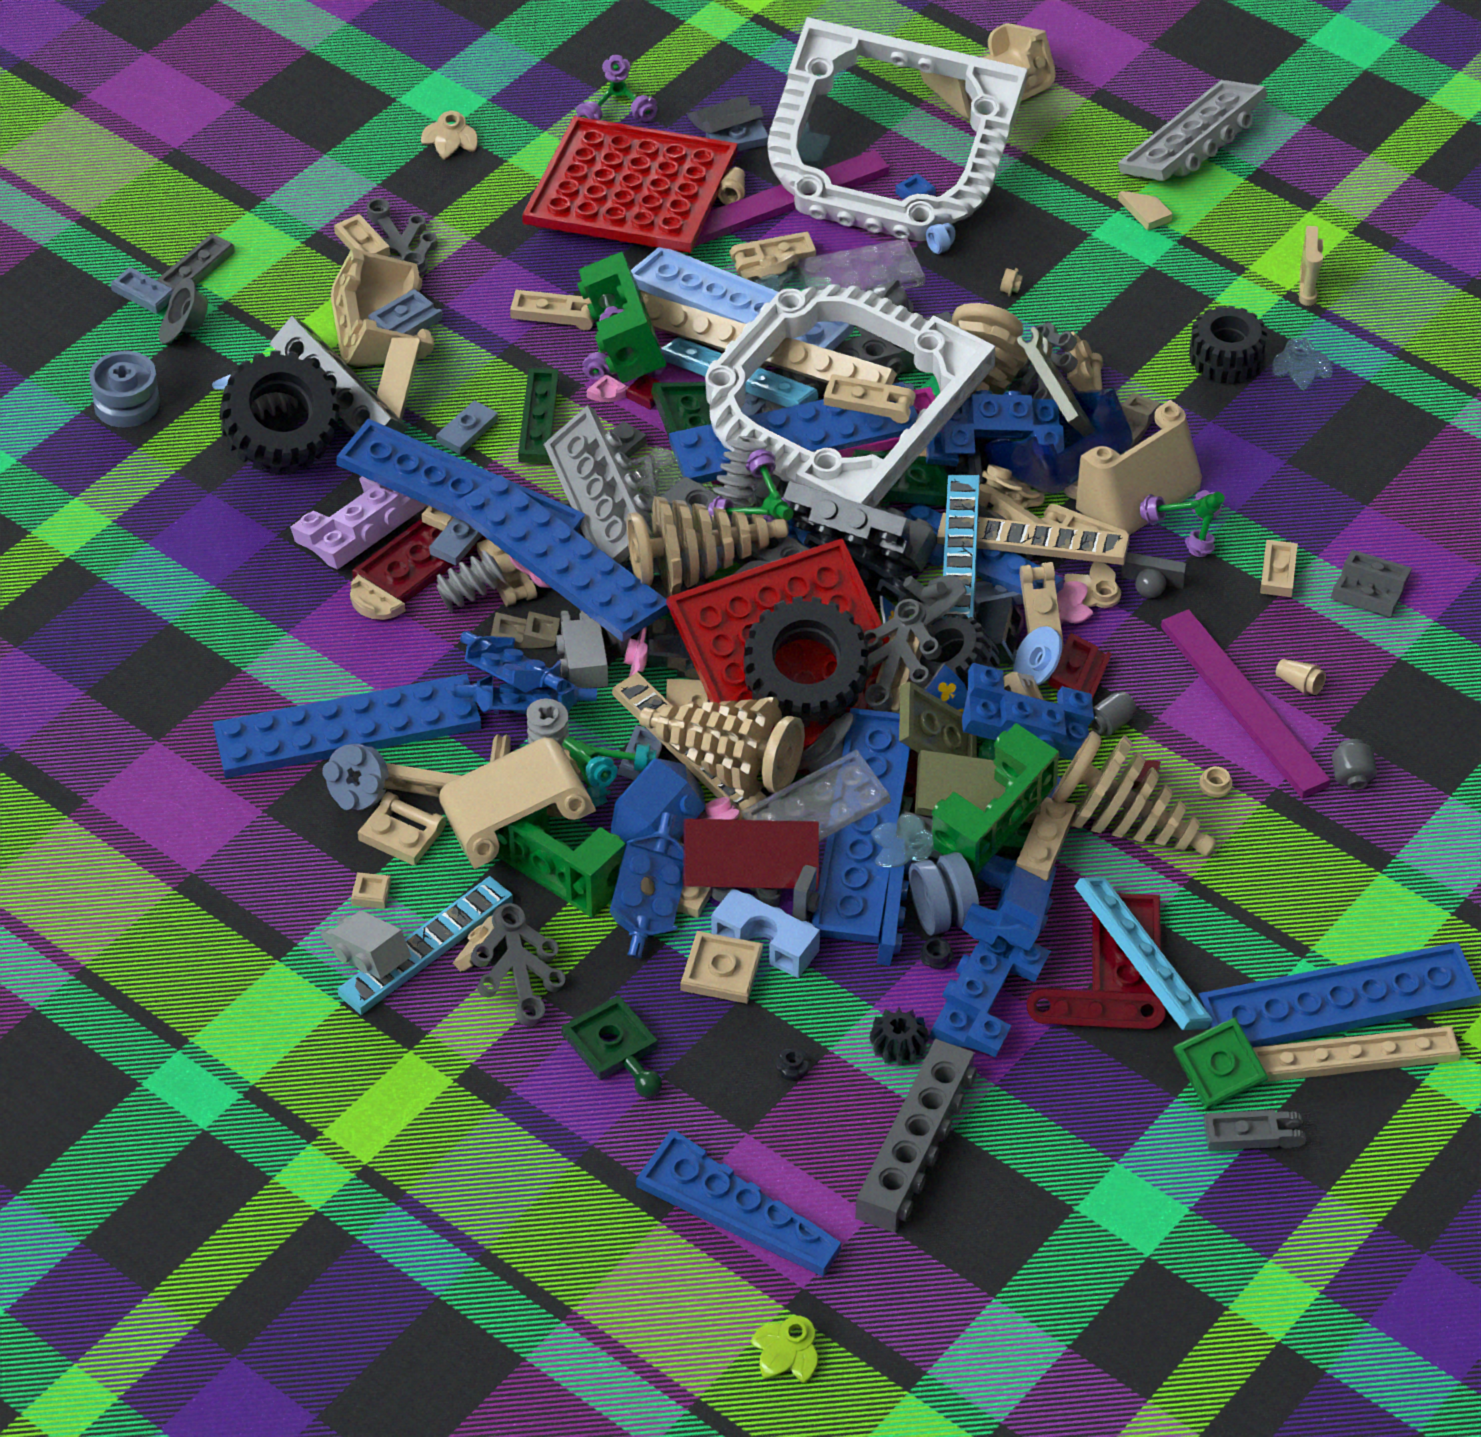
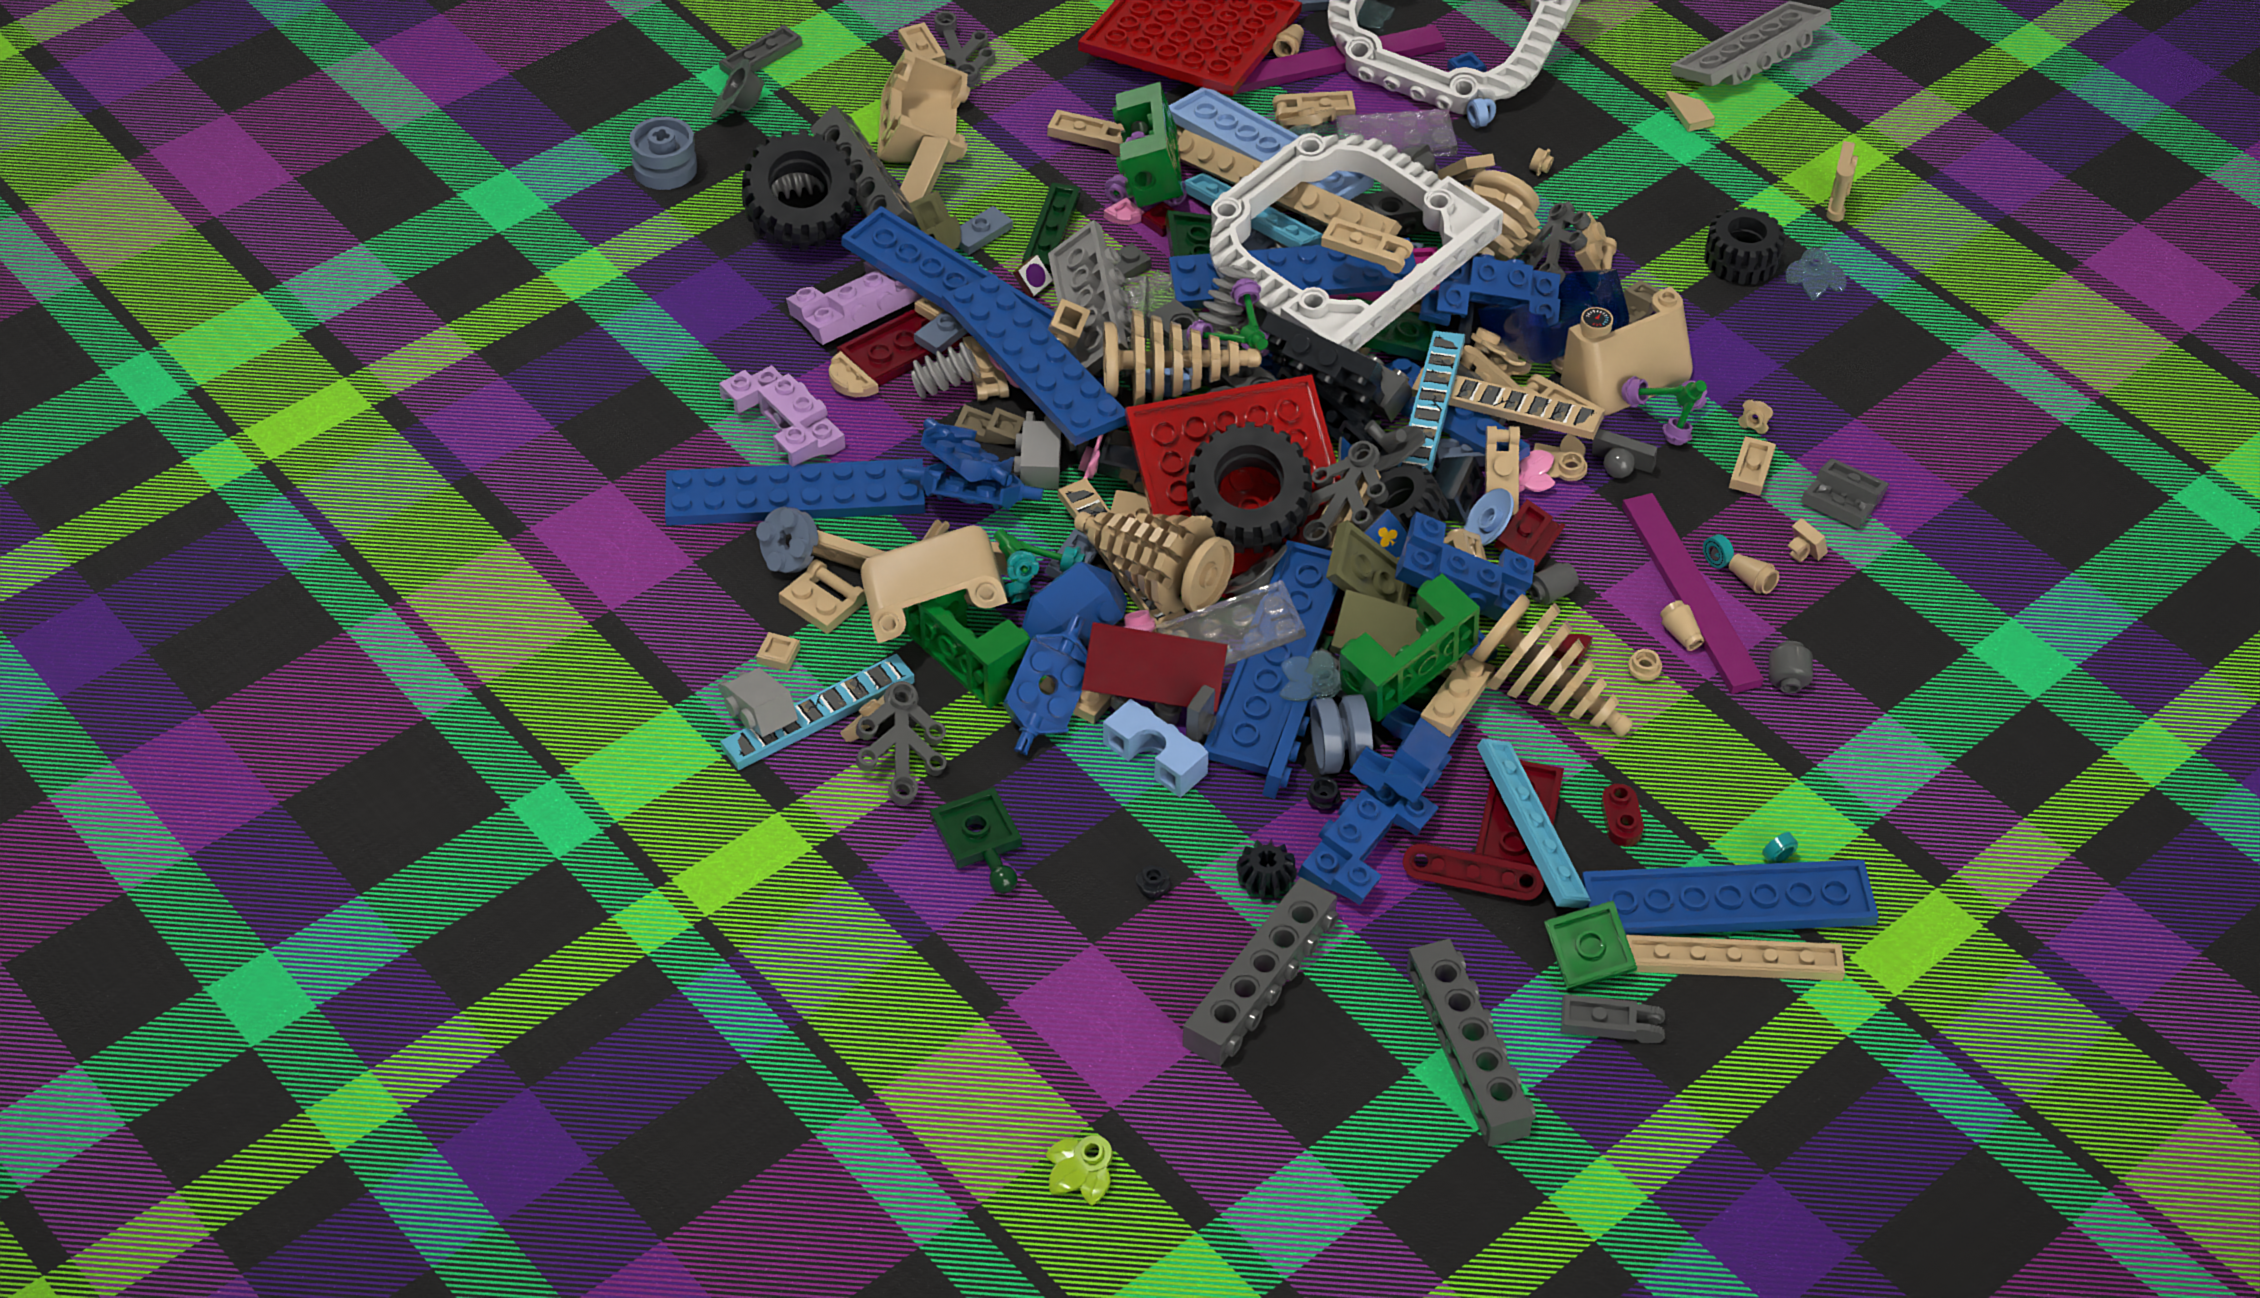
camera: 10 degrees right, 0 degrees up
(142, 290) = (705, 67): sand blue plate -> none
(323, 642) = (790, 408): none -> lavender bracket
(407, 314) = (947, 118): sand blue plate -> none
(423, 425) = (936, 221): none -> olive brick
(532, 469) = (1032, 276): none -> tile
(547, 719) = (985, 510): light grey piece -> none
(587, 515) = (1068, 322): none -> tan brick
(696, 1183) = (1041, 996): blue wing -> none
(722, 967) = (1104, 775): tan plate -> none
(942, 302) = (1467, 167): none -> tan plate
(1055, 382) = (1560, 256): tile -> none
(1092, 1125) = (1496, 1119): none -> dark grey brick
(1107, 447) = (1596, 322): none -> tile
(1220, 930) = (1619, 808): none -> dark red plate
(1243, 737) = (1682, 624): none -> tan cone
(1263, 659) = (1718, 551): none -> teal tile
(1274, 510) = (1757, 408): none -> tan plate
(1345, 637) = (1807, 541): none -> tan tile
(1378, 943) = (1780, 848): none -> teal tile

